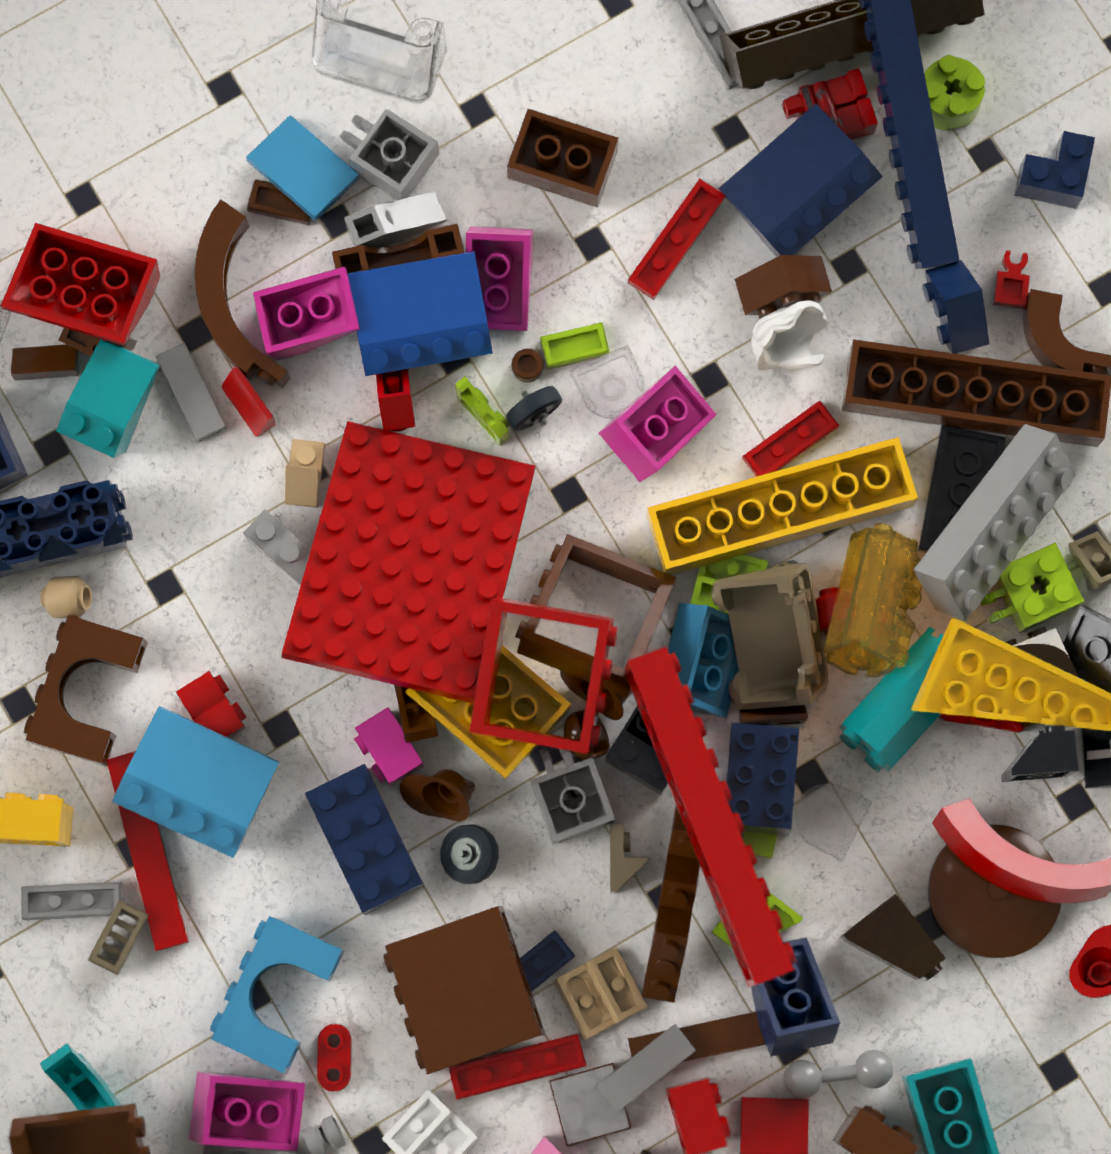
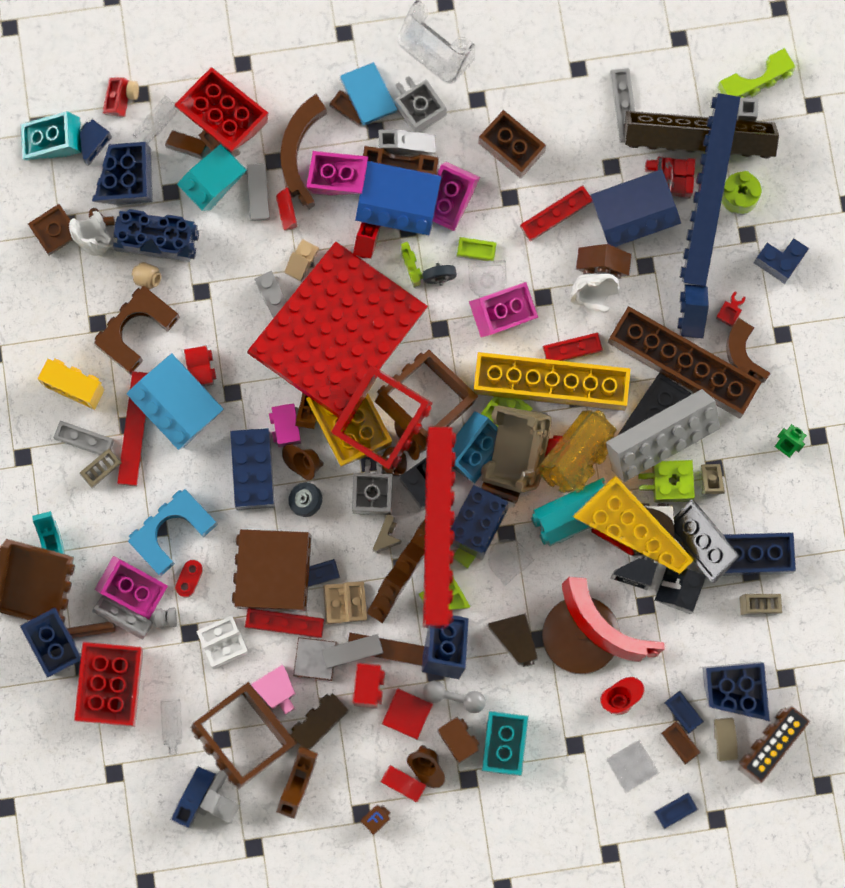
camera: 20 degrees right, 0 degrees up
(527, 365) = (446, 249): reddish brown tile -> none

